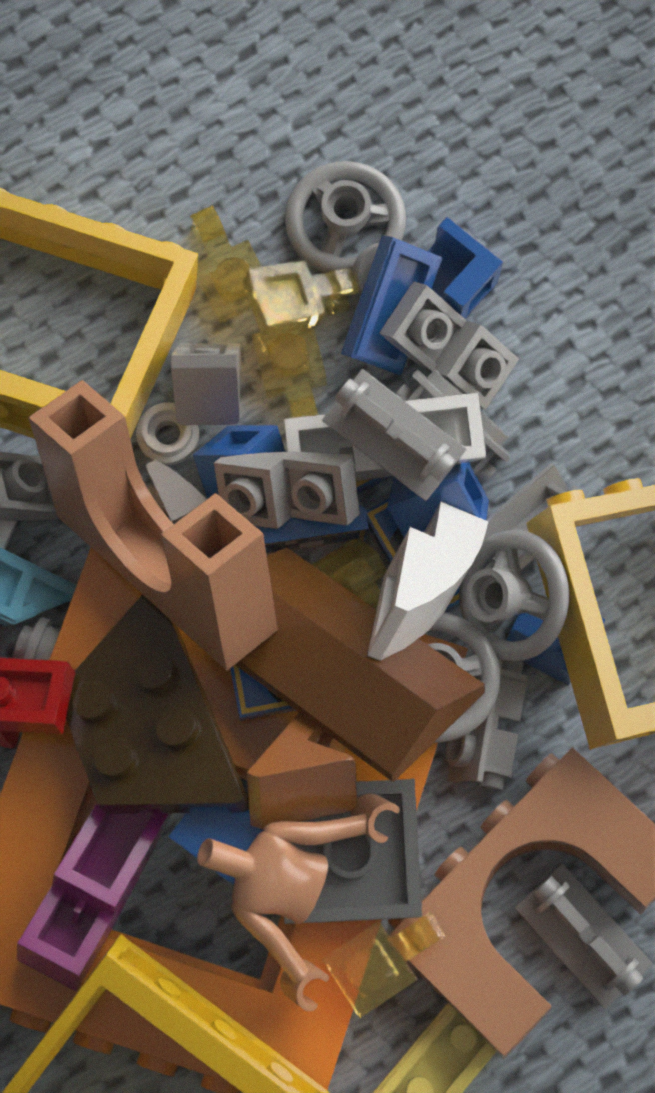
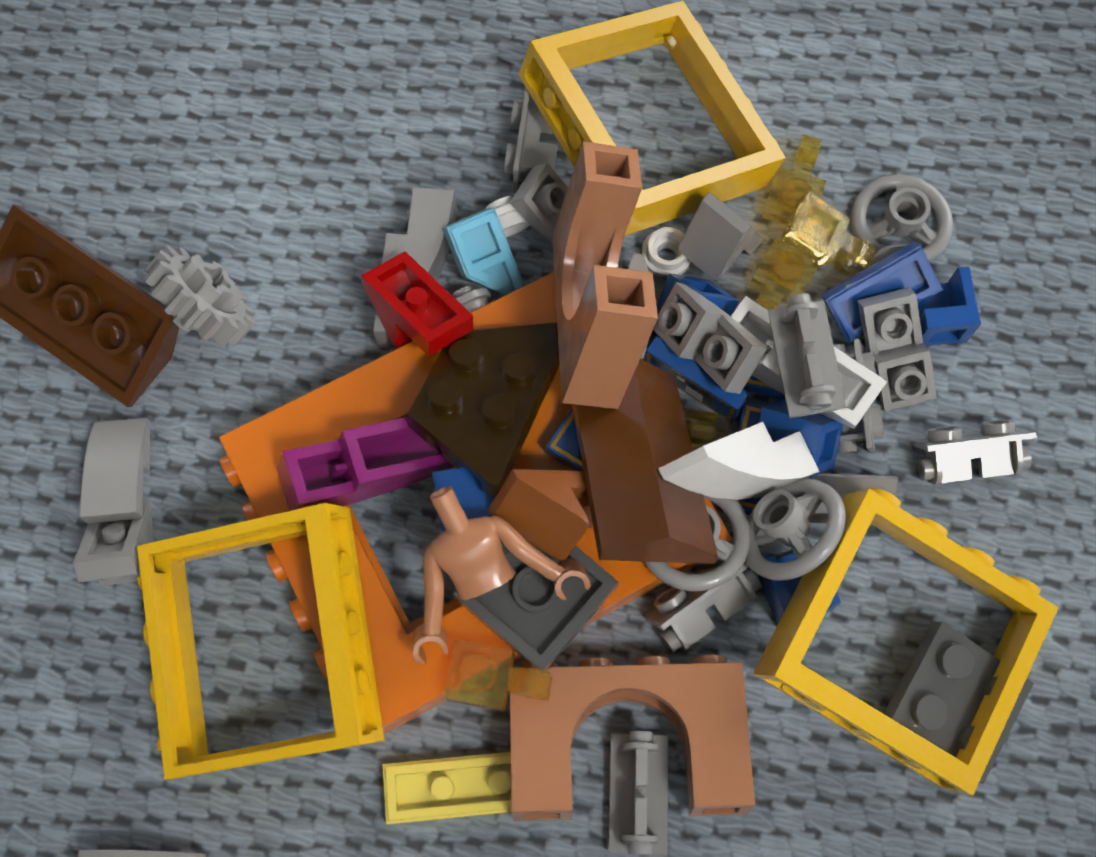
camera: 45 degrees right, 5 degrees down
(603, 359) = (995, 447): none -> hinge

